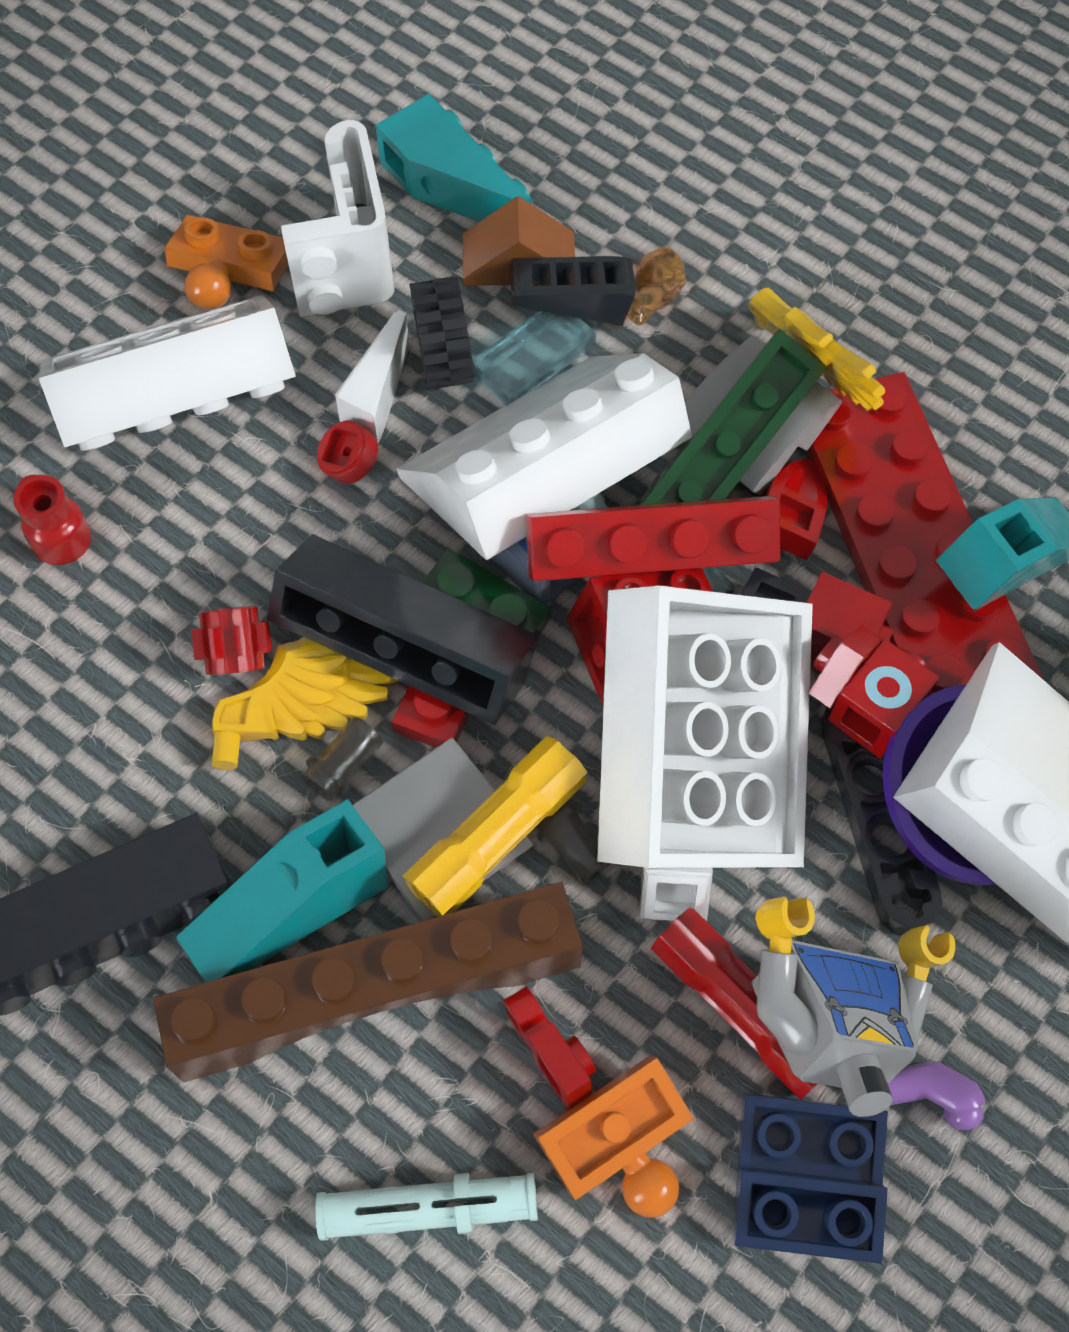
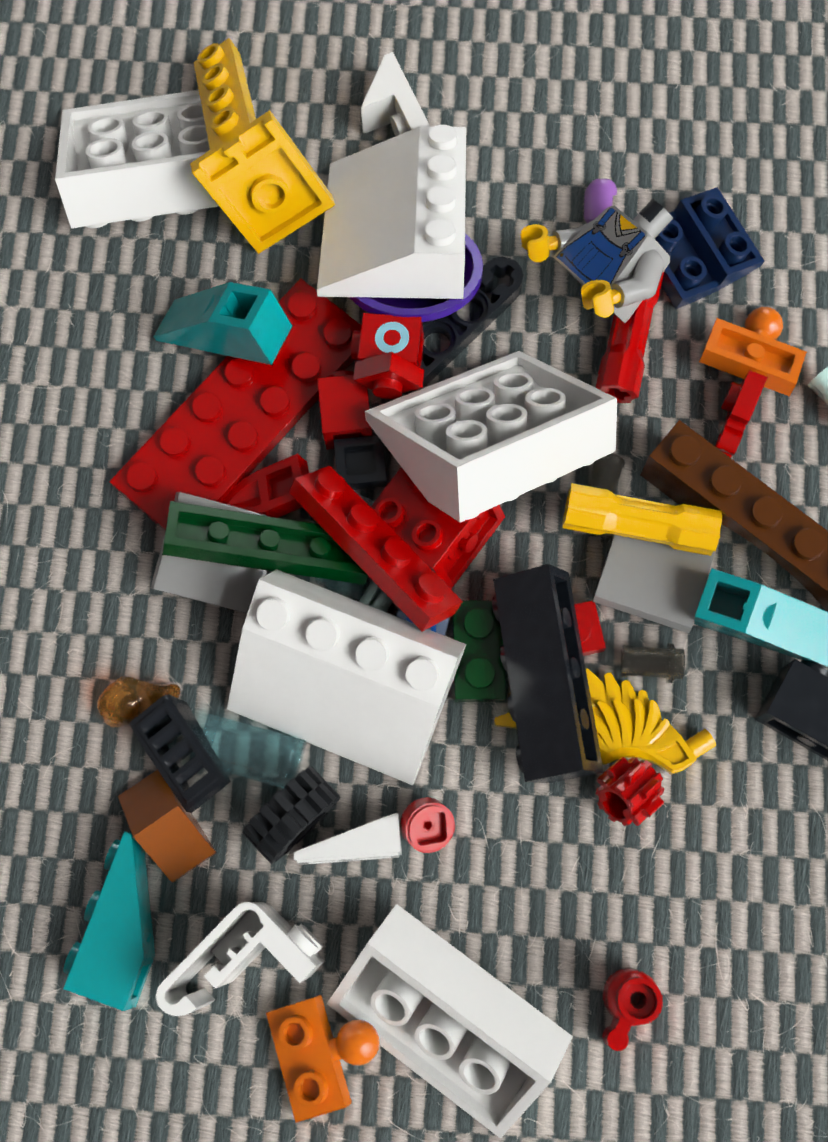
camera: 120 degrees left, 10 degrees up
(844, 368) = (143, 539): yellow animal -> none

